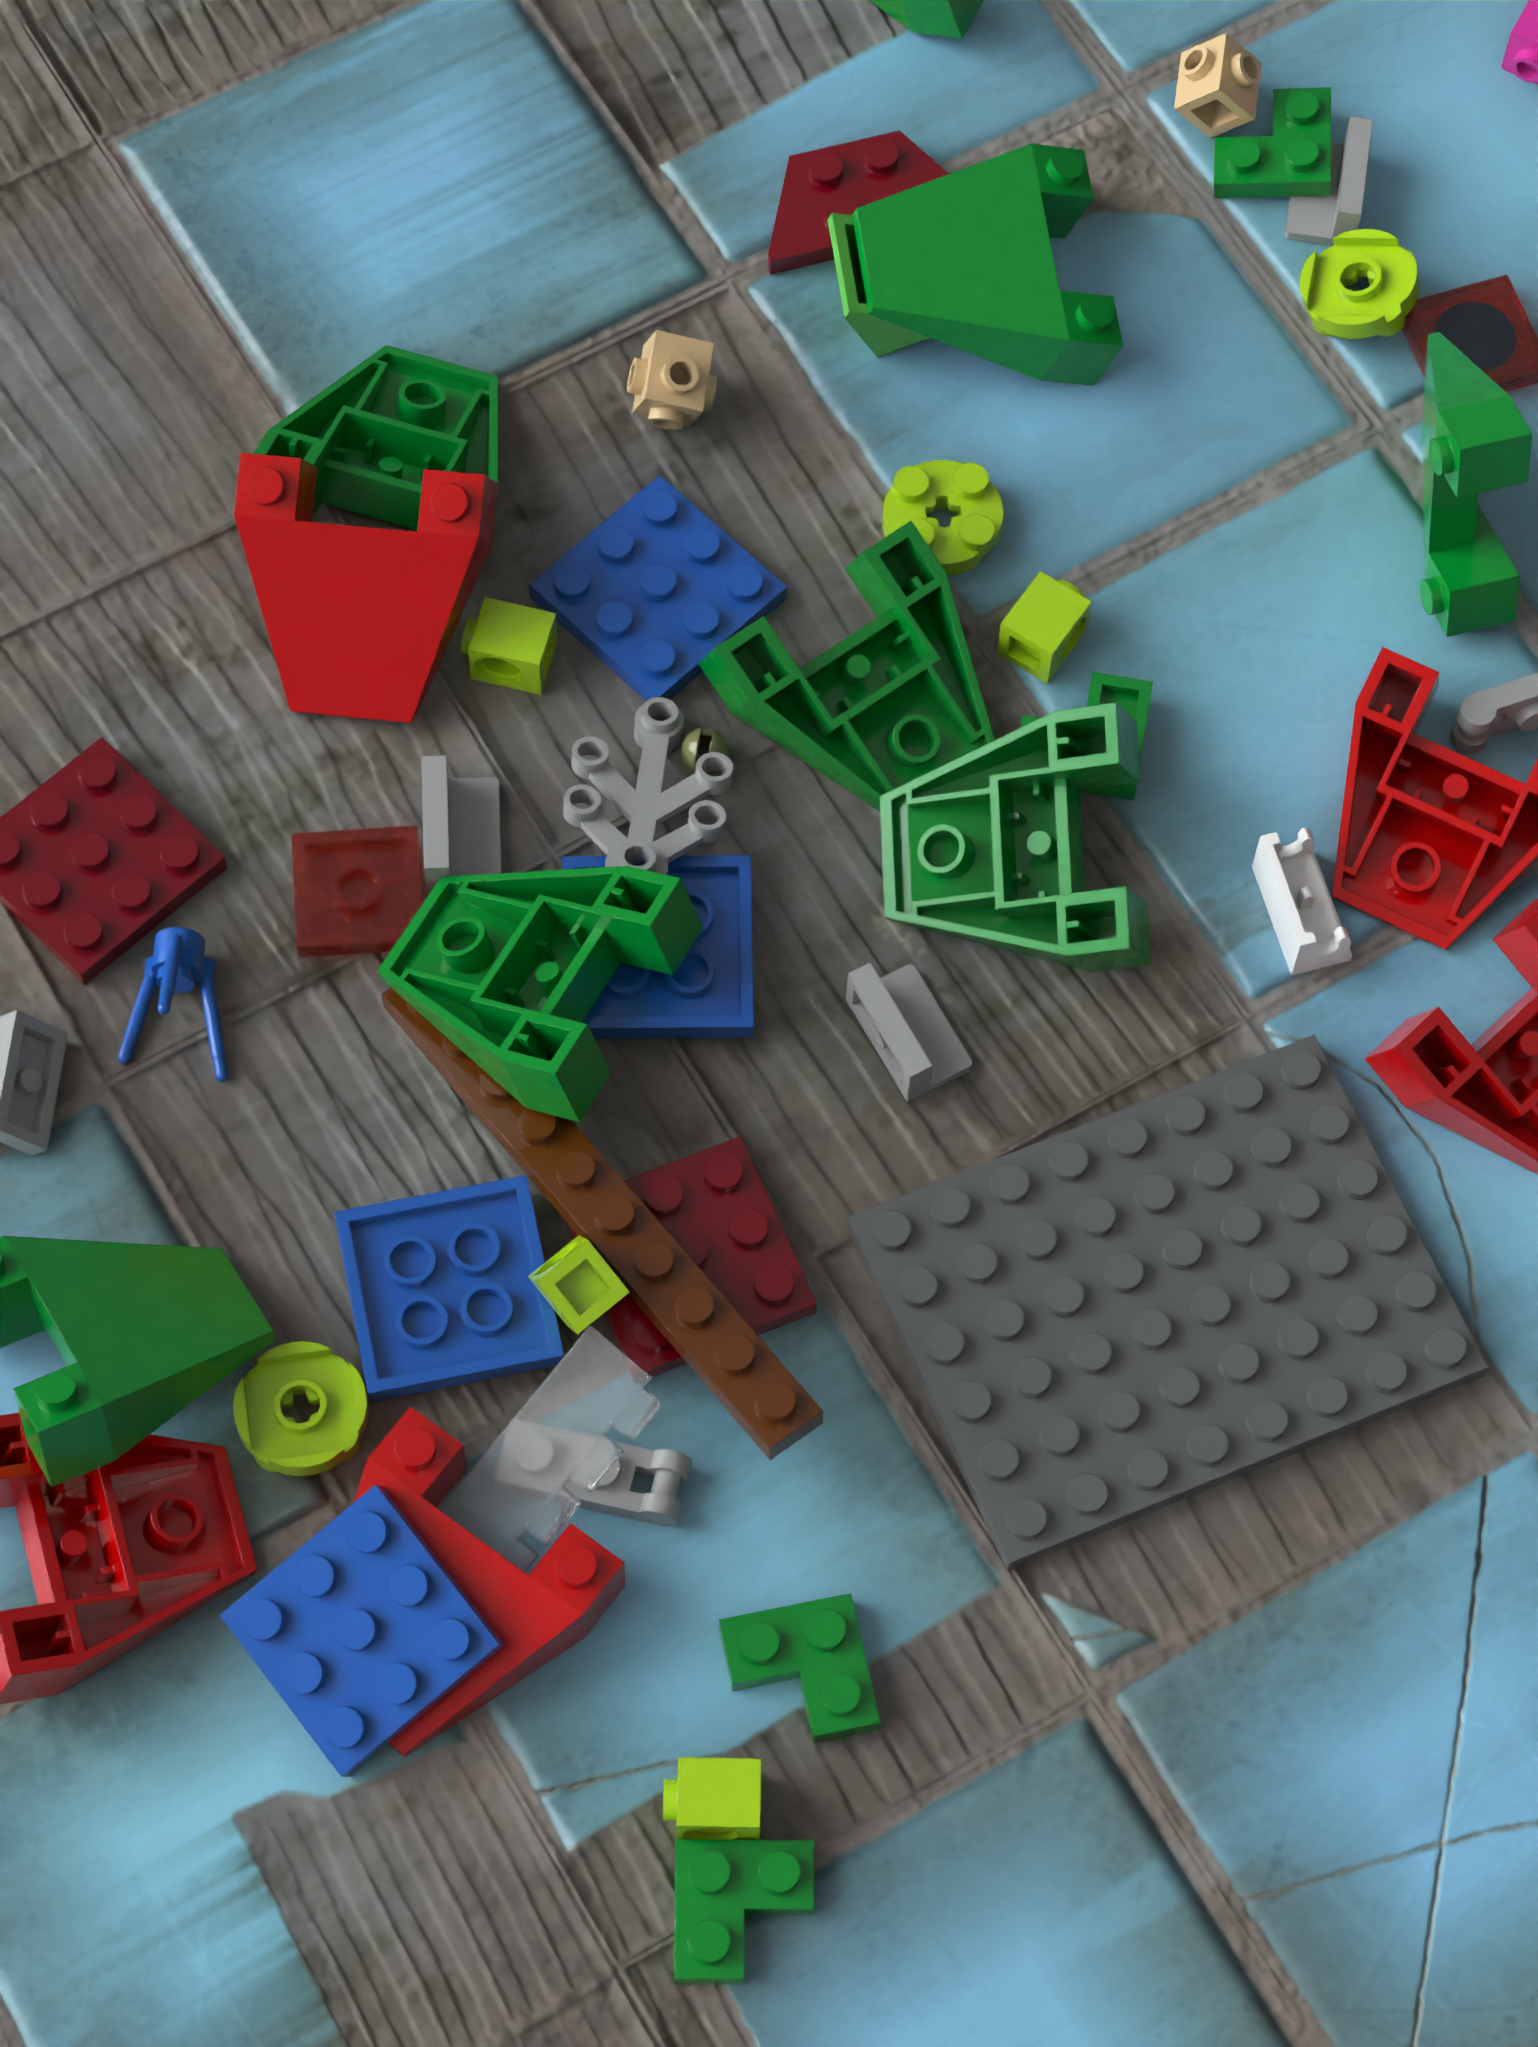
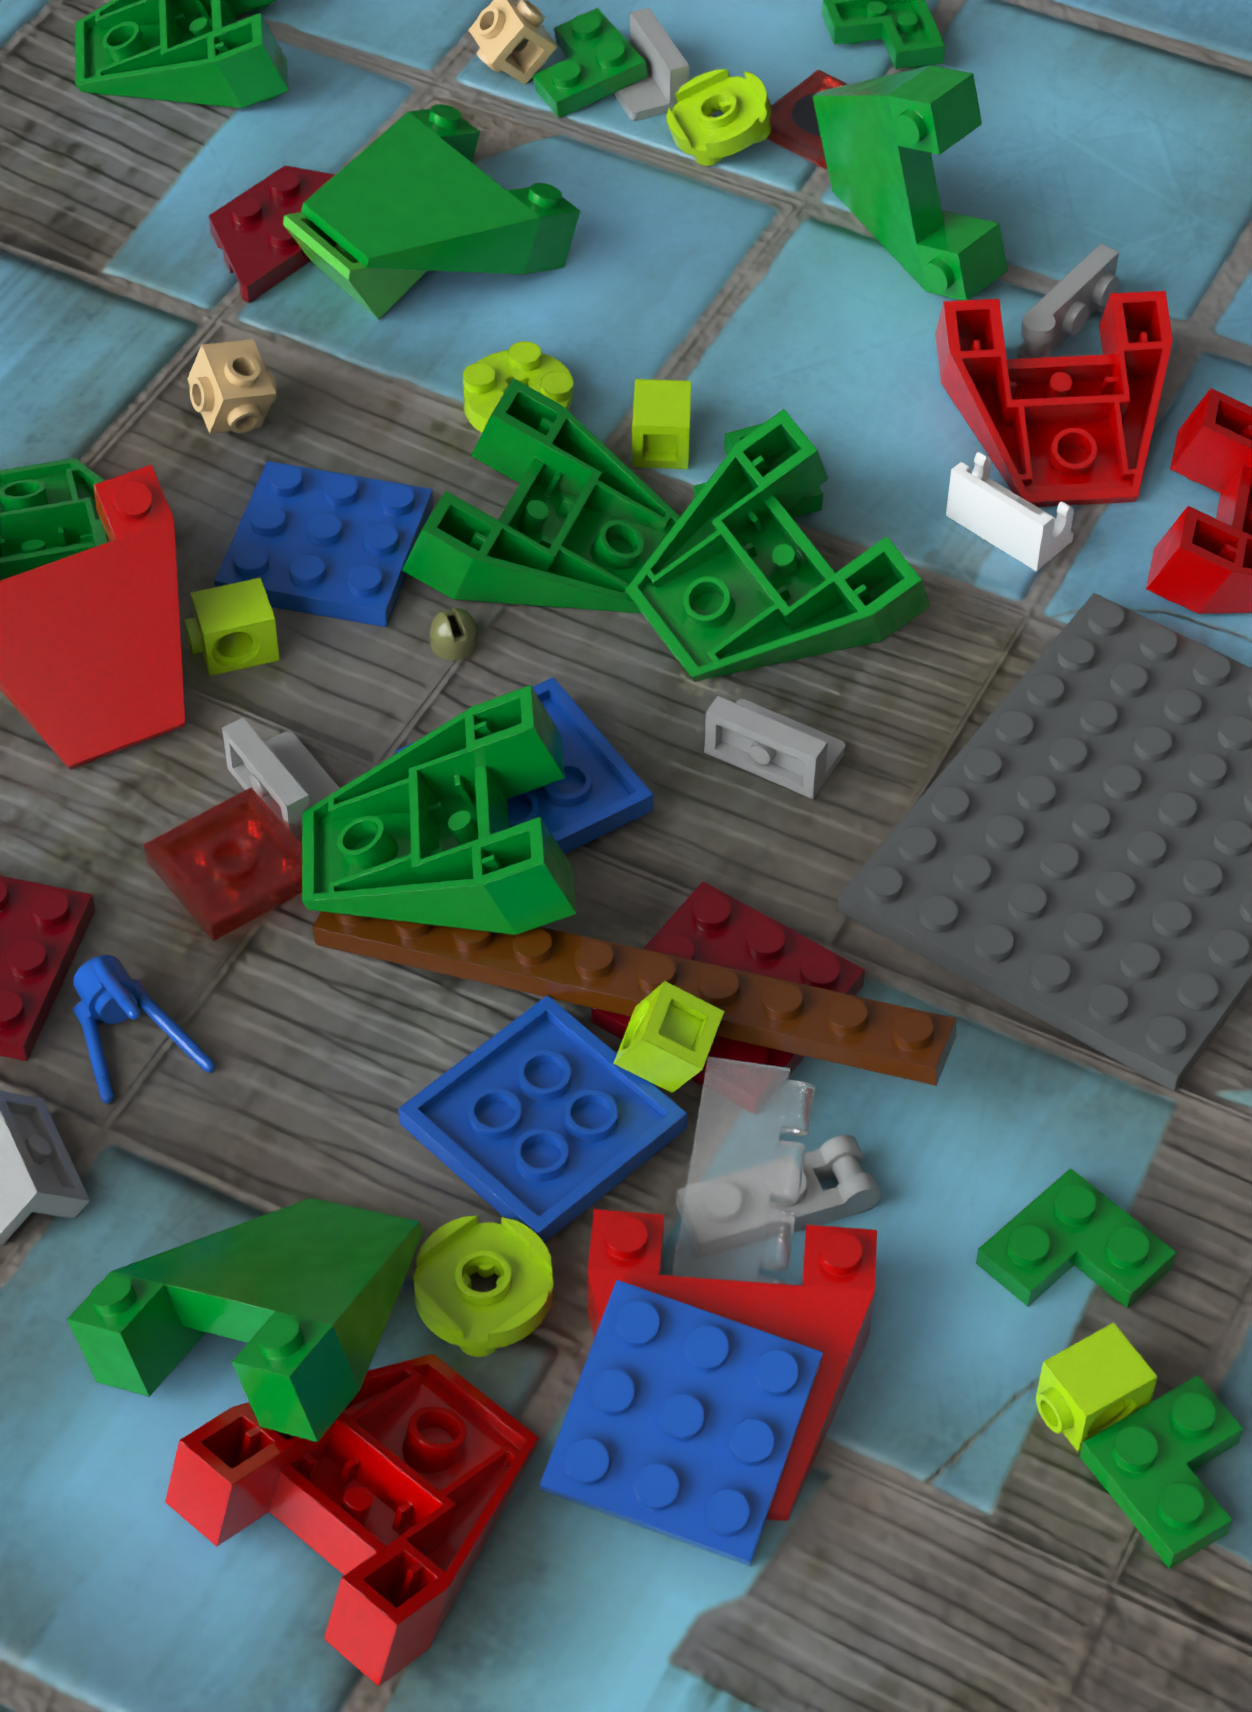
camera: 30 degrees left, 15 degrees down
(657, 731) = (403, 633): light grey plant -> none

